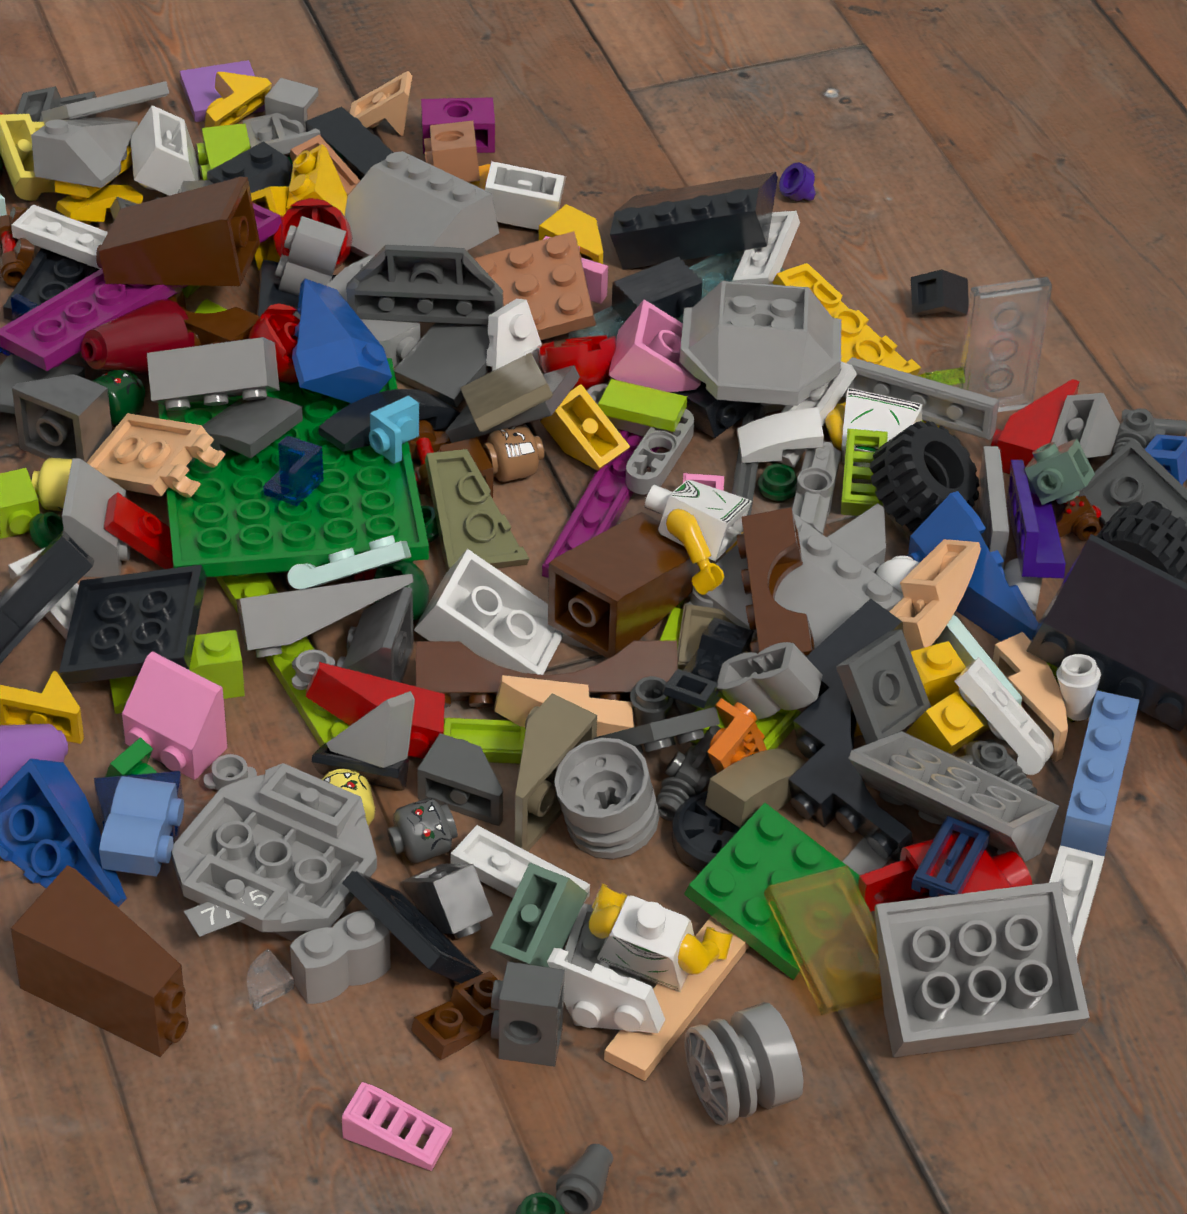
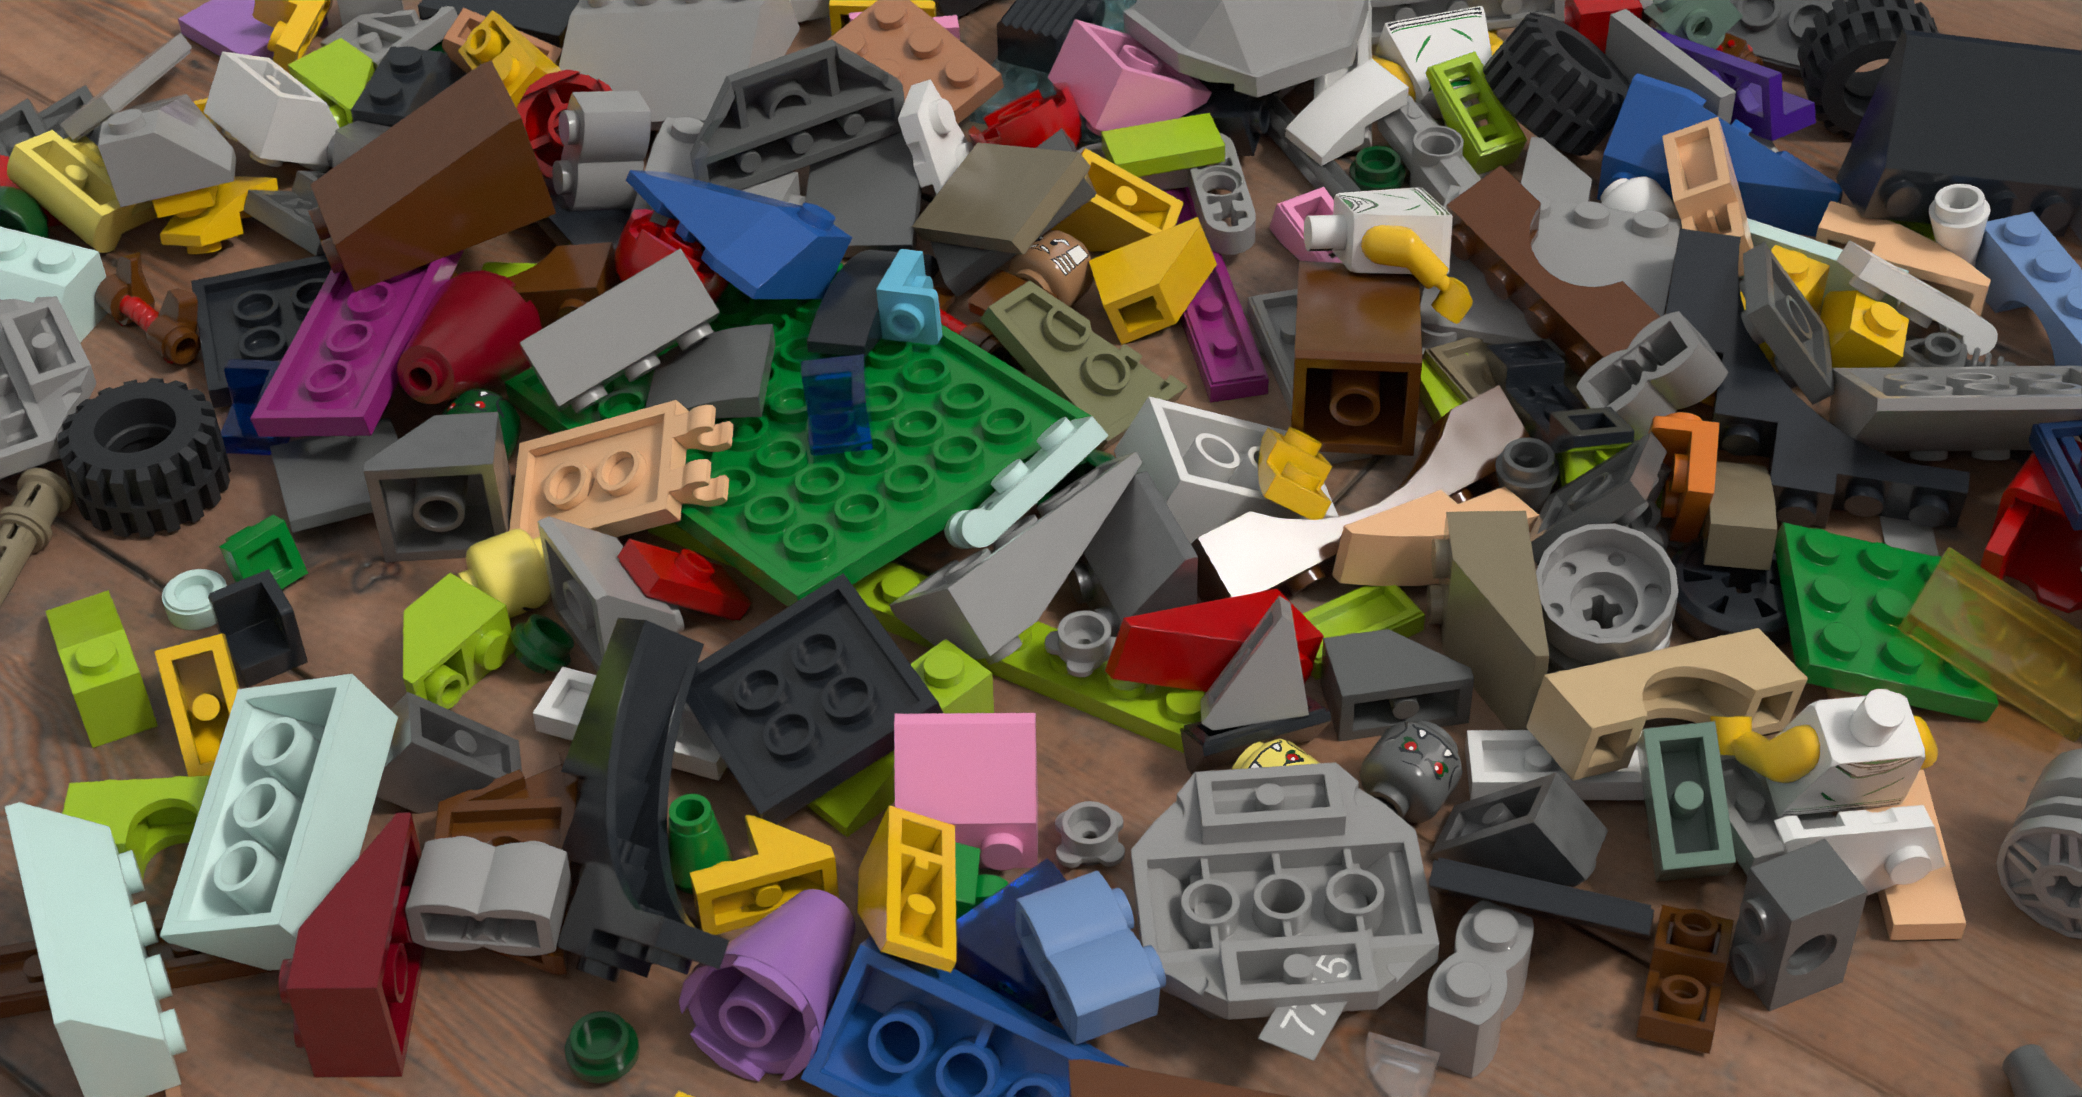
camera: 30 degrees left, 0 degrees up
(24, 669) = (694, 839): none -> green cone
(59, 234) = (233, 264): white plate -> none
(90, 749) = (911, 889): none -> yellow slope
(522, 636) = (1294, 472): none -> yellow slope
(562, 485) = (1153, 279): none -> yellow slope
(625, 863) = (1597, 711): none -> tan arch

